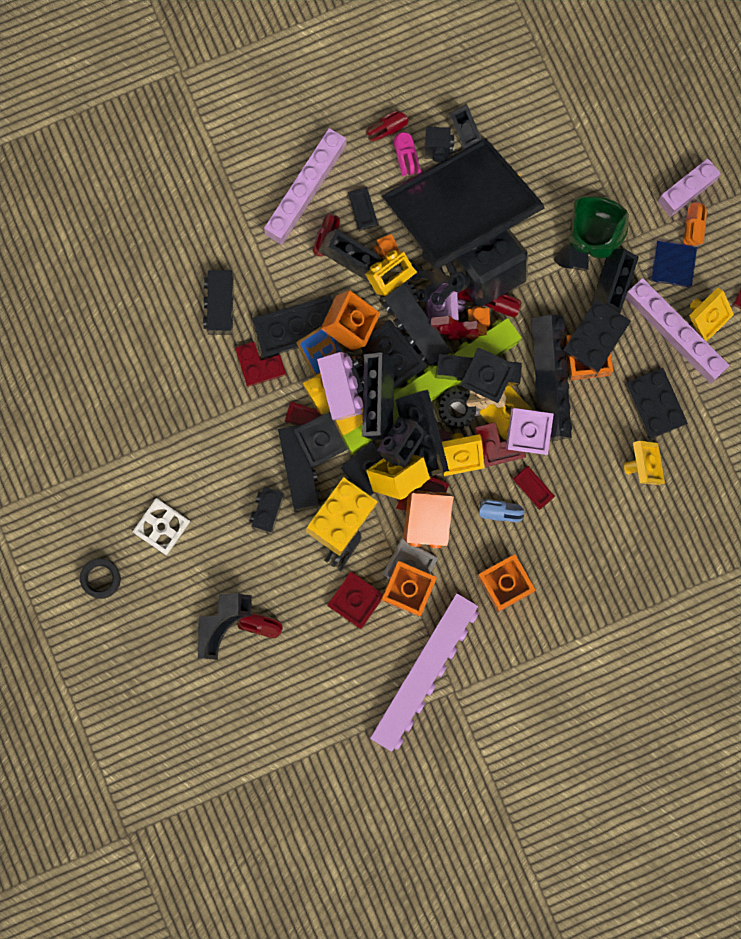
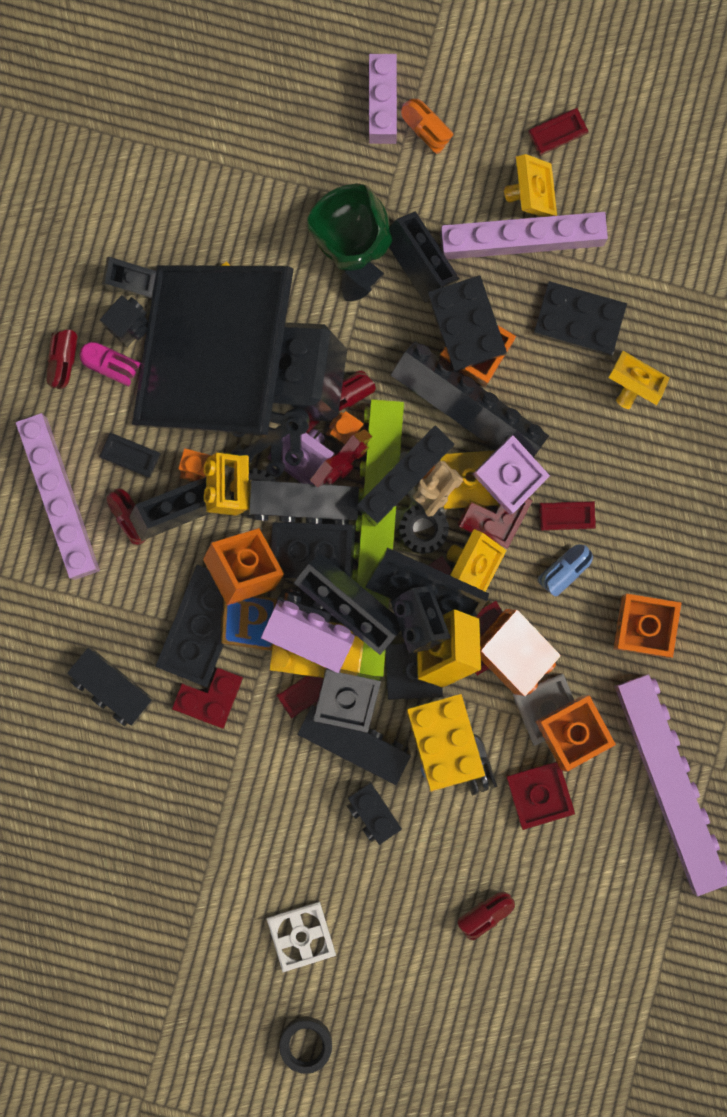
camera: 50 degrees left, 5 degrees up
(213, 628) = (453, 966): black arch -> none
(488, 375) = (422, 472): black plate -> none
(674, 264) = (449, 180): clear blue tile -> none

